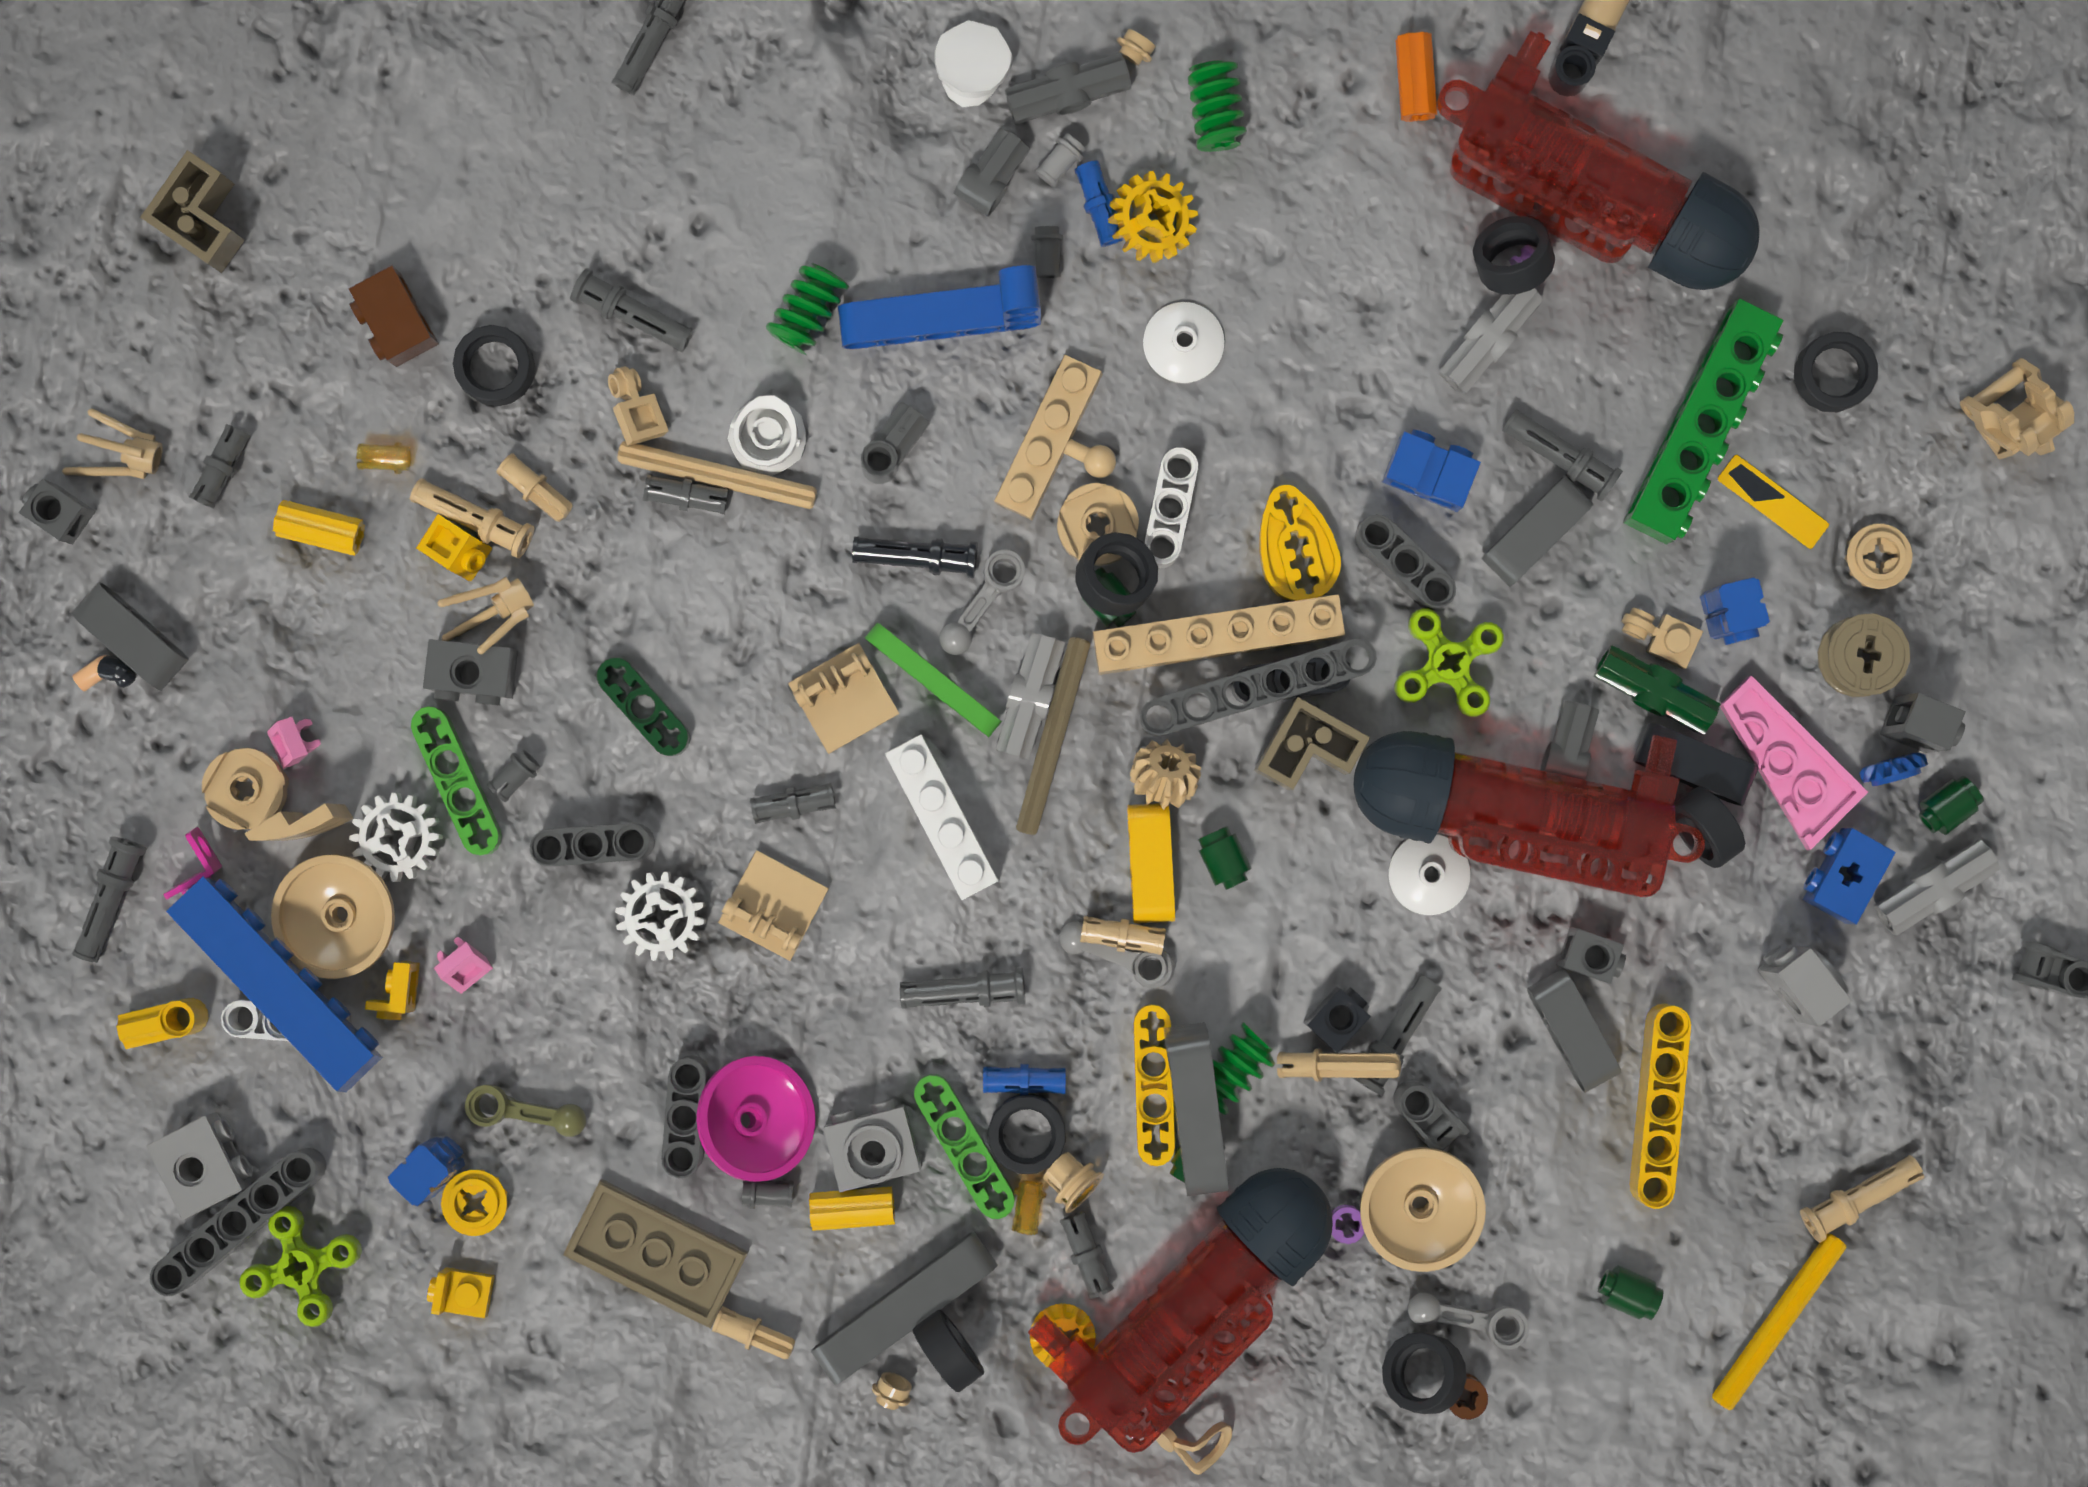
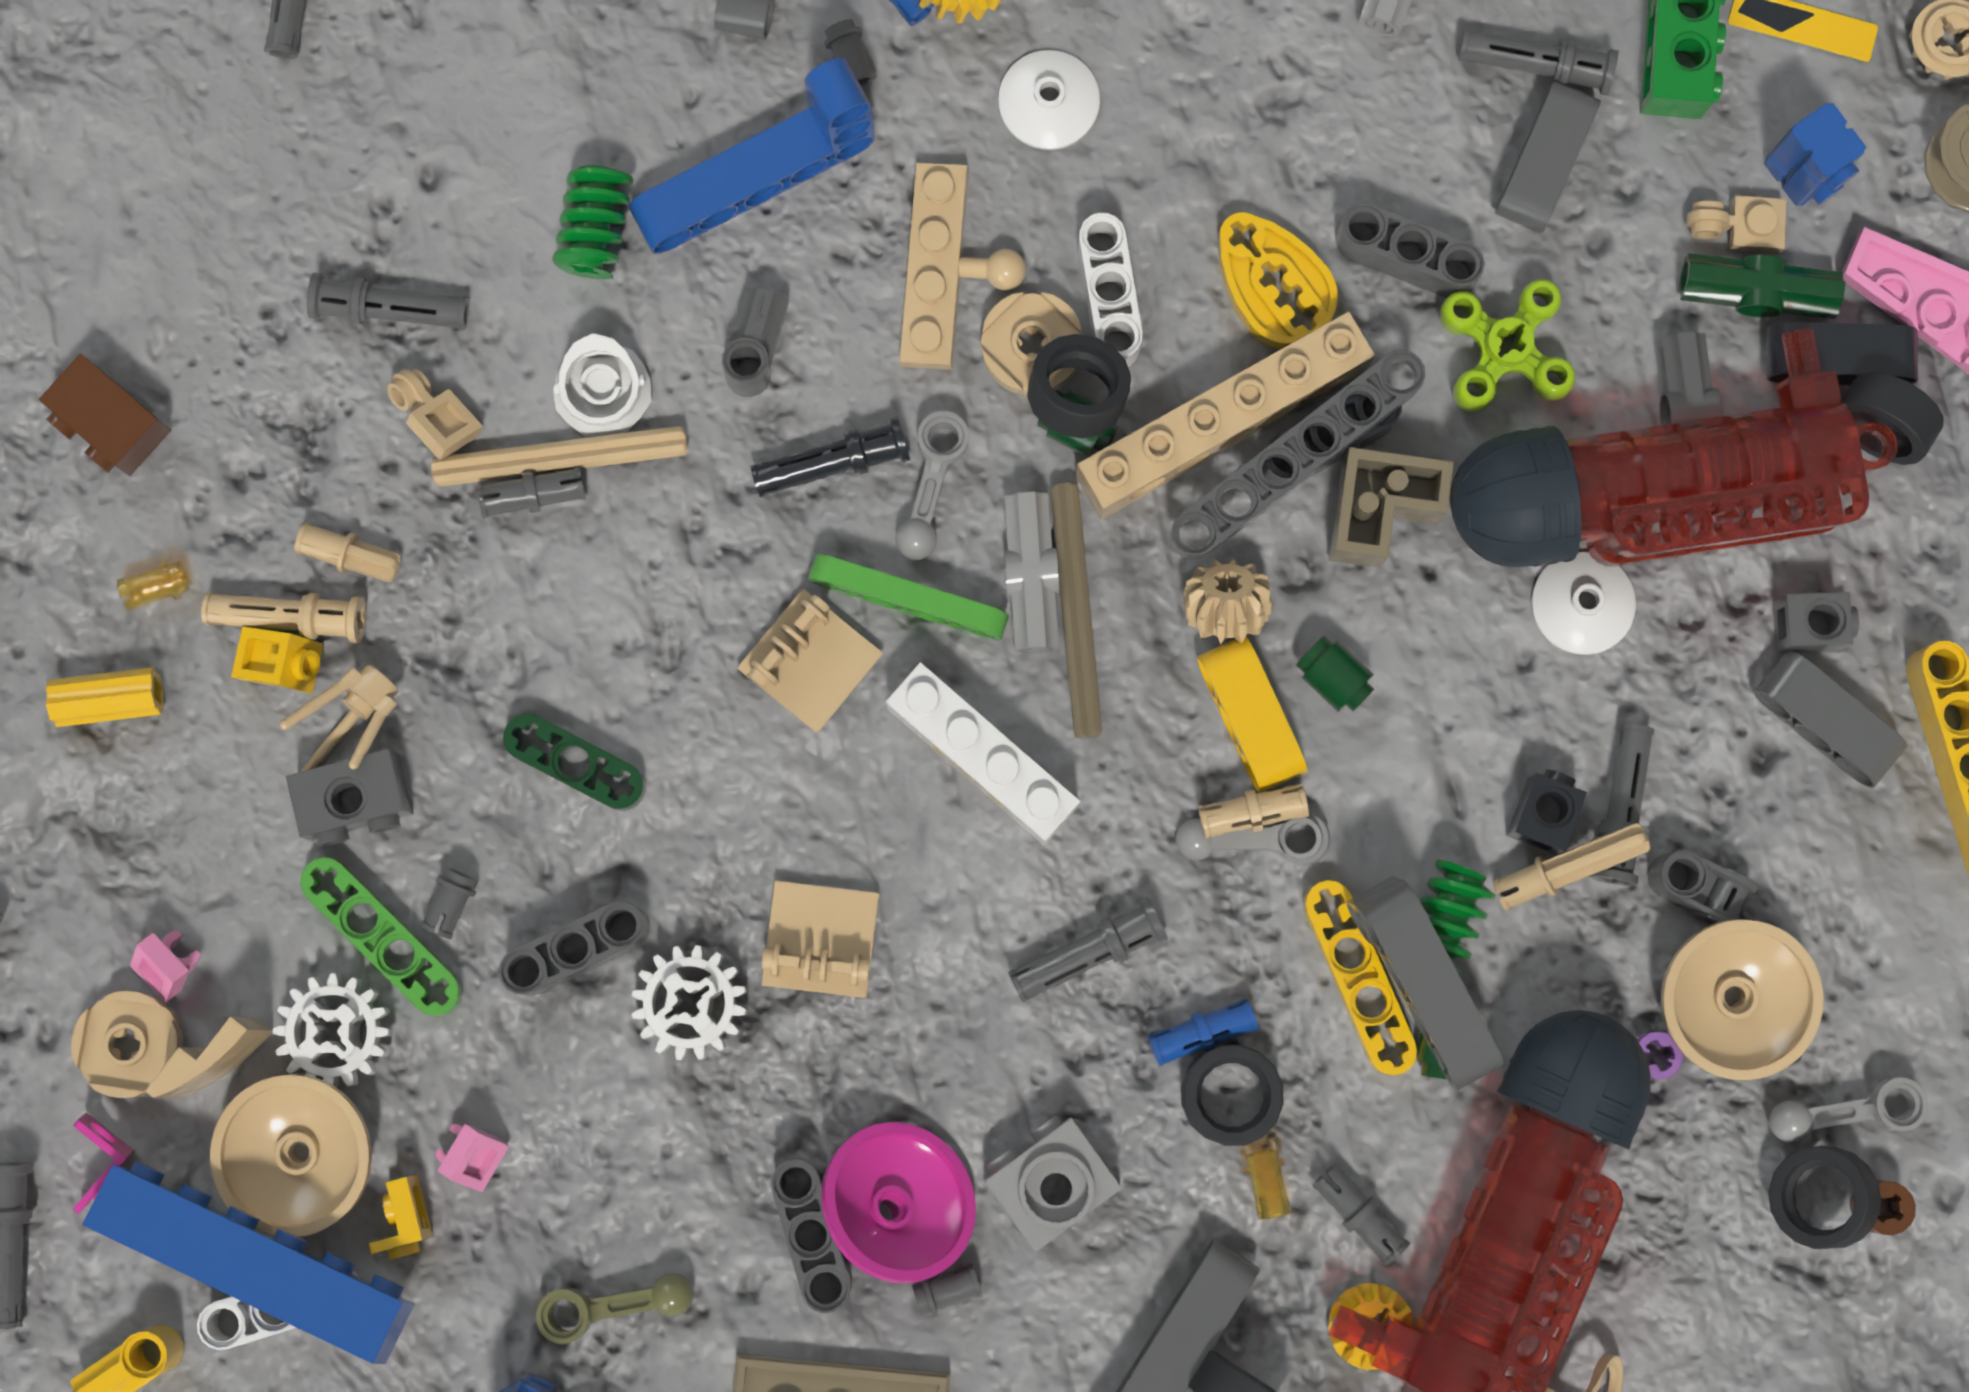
camera: 20 degrees left, 5 degrees down
(488, 334) = (213, 405): black tyre -> none
(793, 803) = (797, 807): dark grey pin -> none
(852, 1208) = (1056, 1268): yellow axle -> none
(960, 1148) = (1166, 1134): bright green beam -> none
(1072, 1181) = (1308, 1130): tan piece -> none
(1431, 471) = (1397, 135): blue brick -> none

